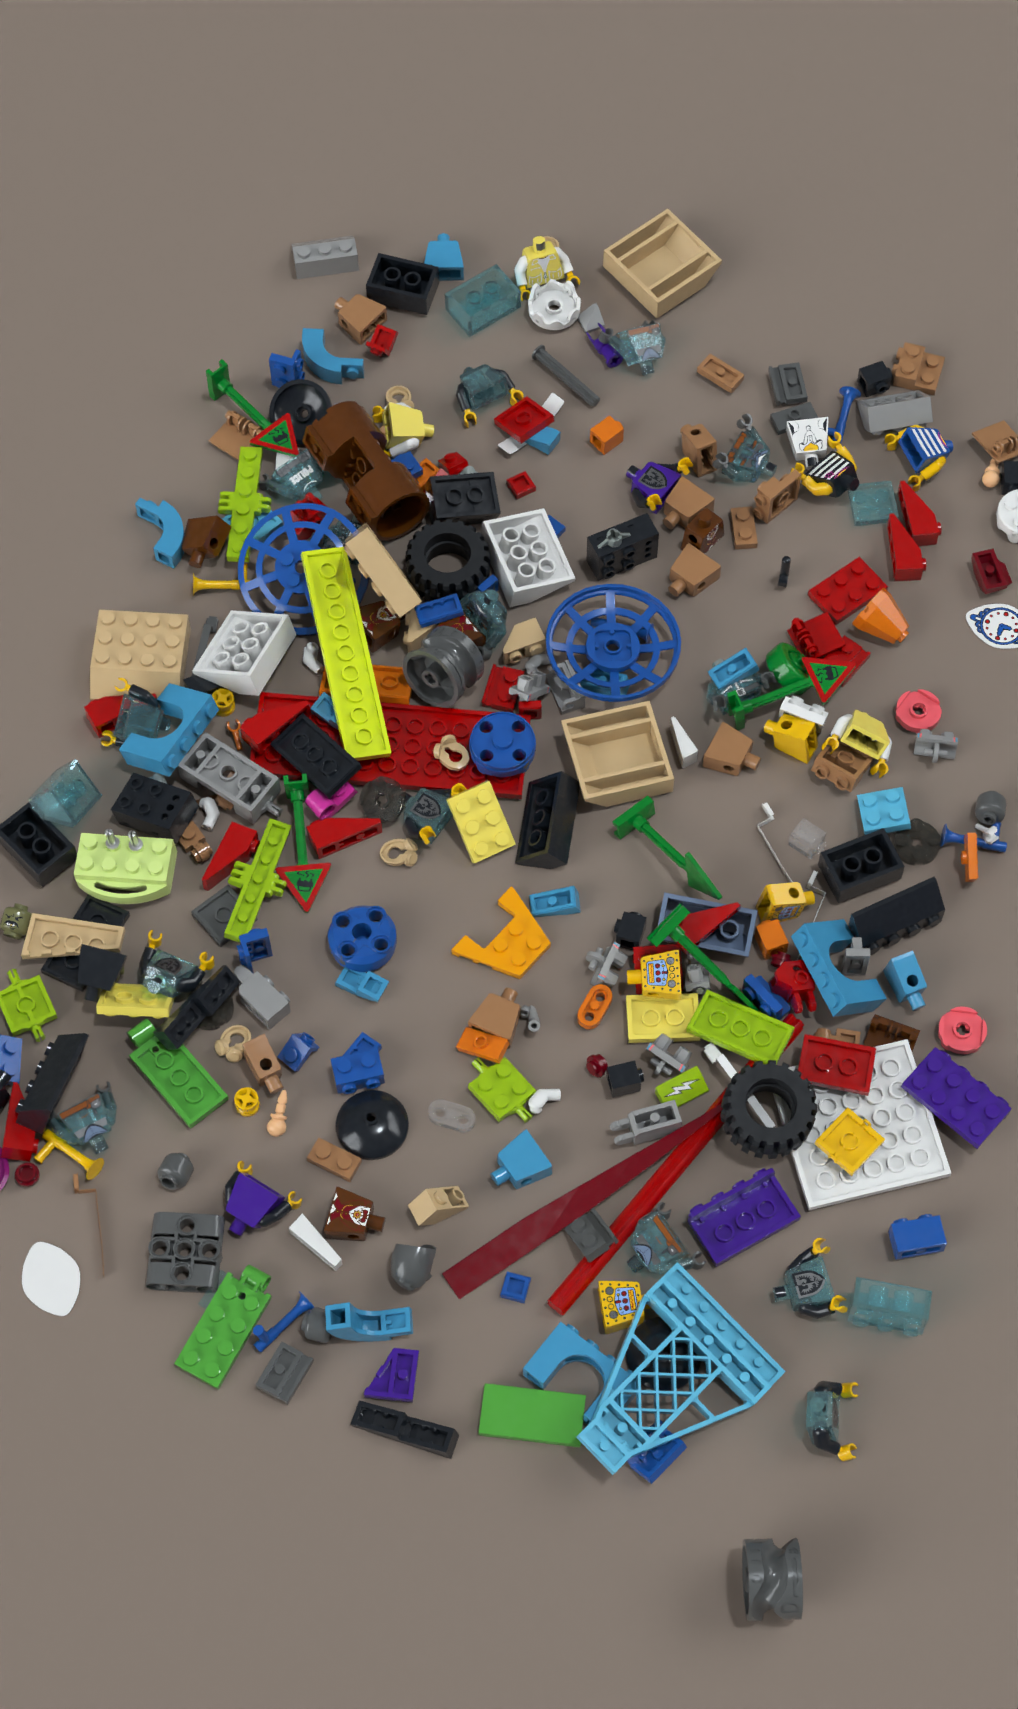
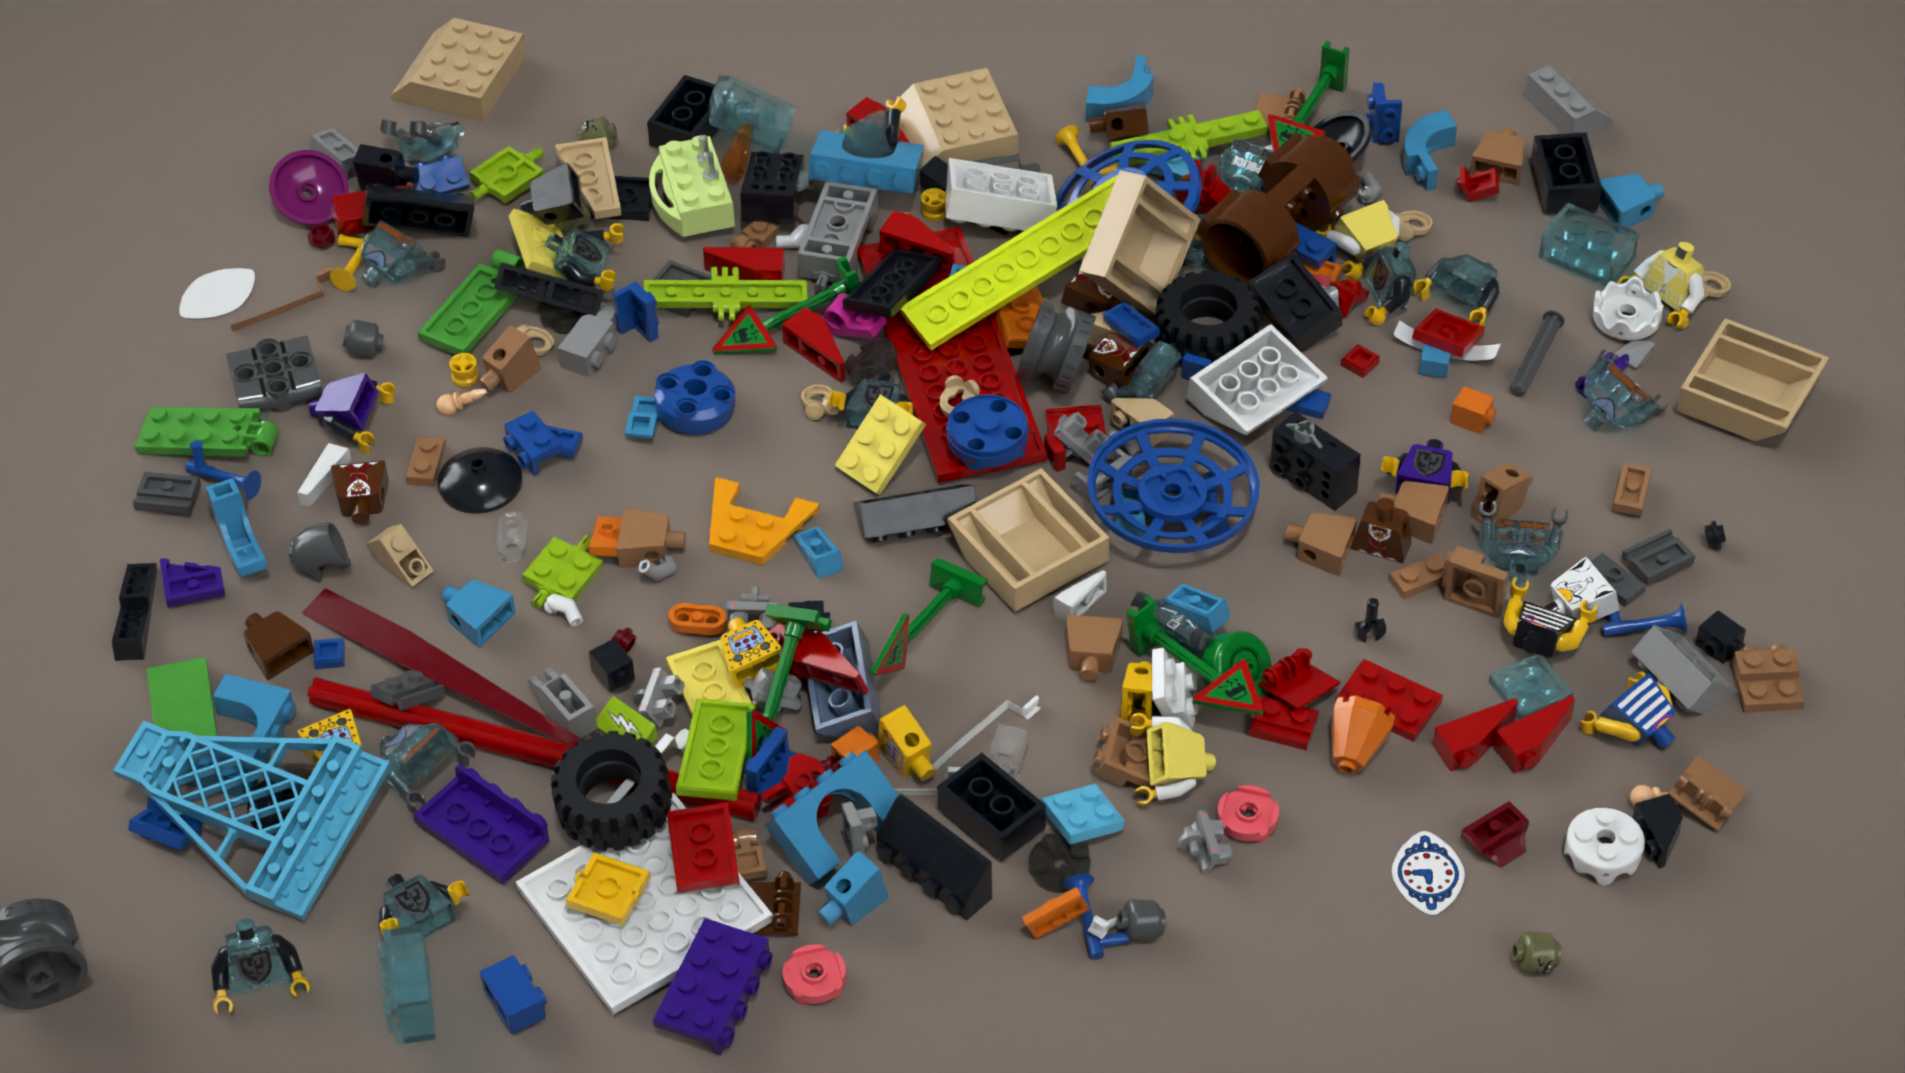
camera: 70 degrees right, 15 degrees down
(99, 816) = (737, 154): none -> clear orange slope
(297, 1050) = (543, 388): blue bracket -> none
(457, 432) = (1389, 277): none -> torso
(493, 1325) = (276, 642): none -> reddish brown torso
(782, 344) = (1715, 535): none -> black plate

